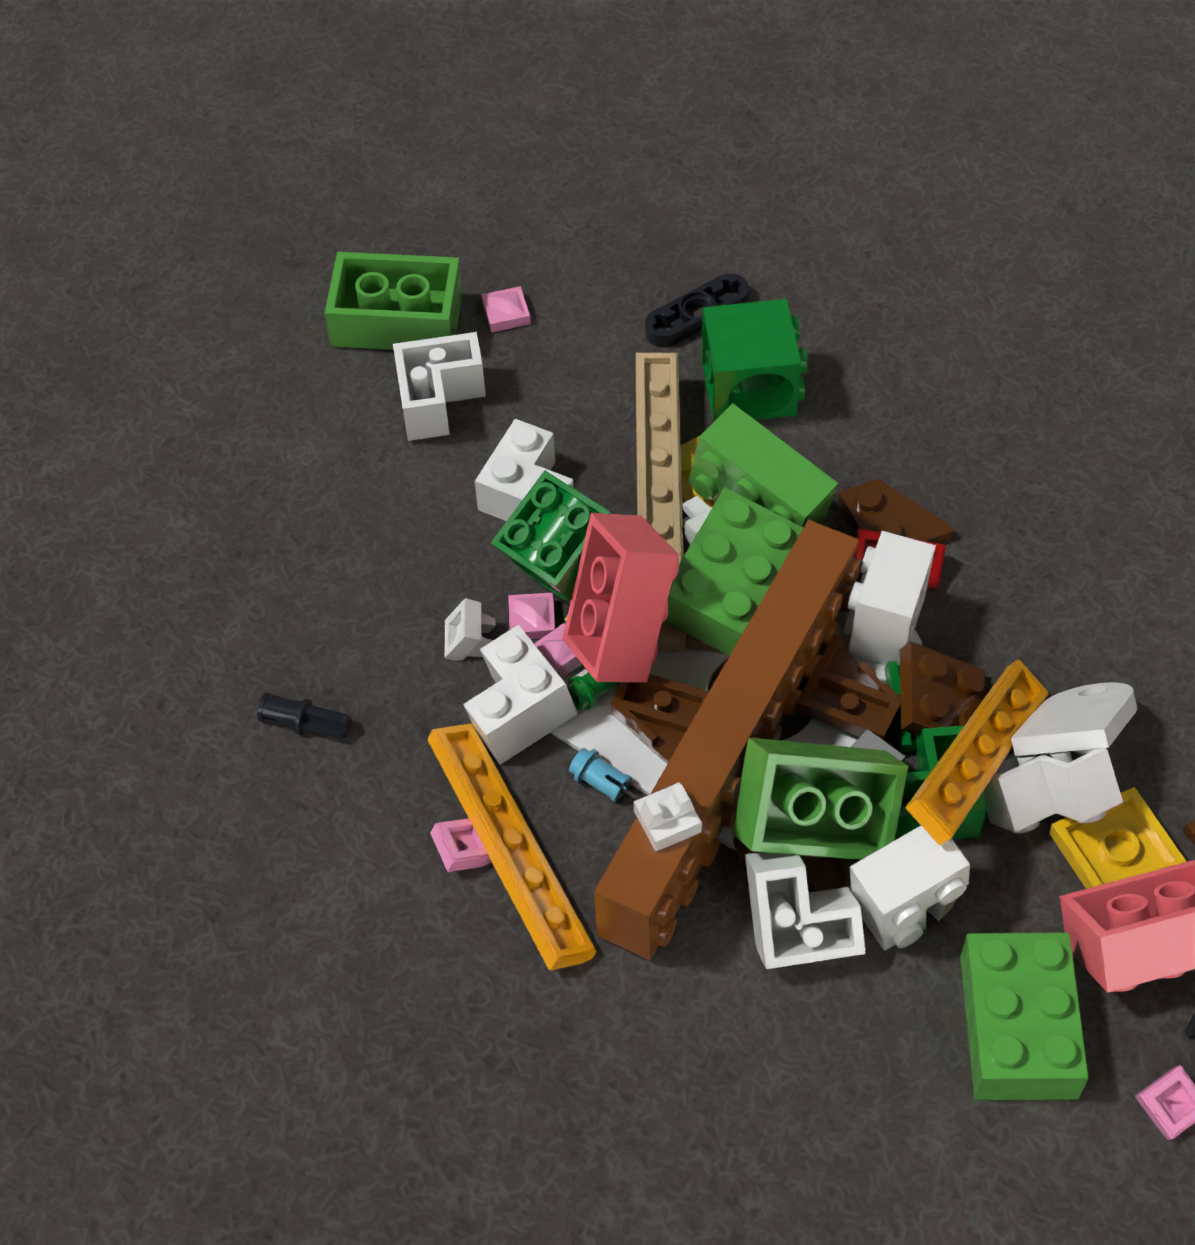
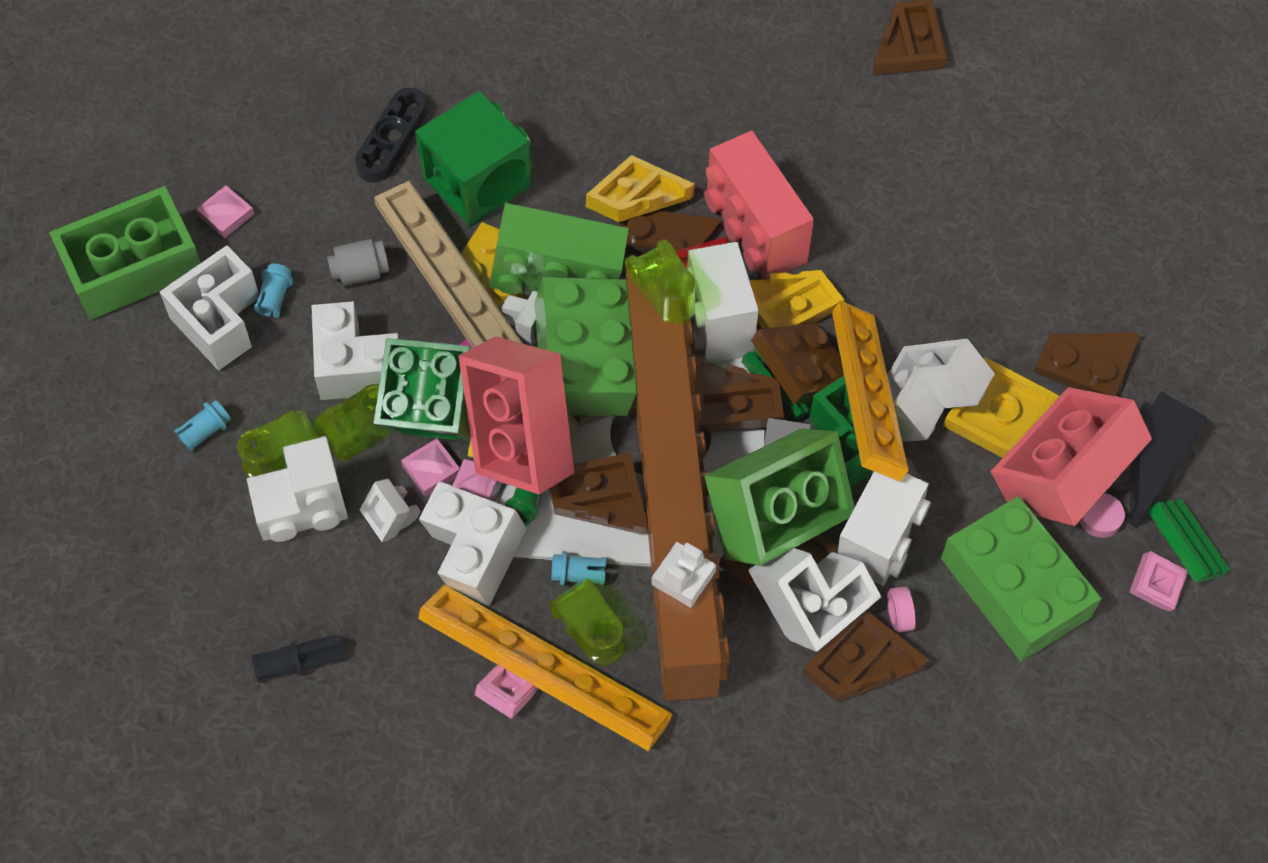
camera: 35 degrees left, 5 degrees up
(361, 479) = (203, 425): none -> medium azure pin
(398, 577) = (299, 496): none -> white brick
(415, 527) = (269, 441): none -> clear neon green piece
(479, 544) = (354, 421): none -> clear neon green piece
(499, 394) = (273, 289): none -> medium azure pin
(576, 823) = (588, 617): none -> clear neon green piece
(588, 405) = (358, 262): none -> light grey brick
(811, 1004) = (862, 659): none -> reddish brown wing
(832, 546) = (659, 277): none -> clear neon green piece
(881, 979) = (901, 609): none -> bright pink tile
(889, 462) = (637, 190): none -> yellow wing
(972, 633) = (794, 298): none -> yellow wing
(992, 531) = (758, 206): none -> coral brick
(1077, 720) = (919, 326): white tile -> none
(1157, 1006) = (1104, 517): none -> bright pink tile

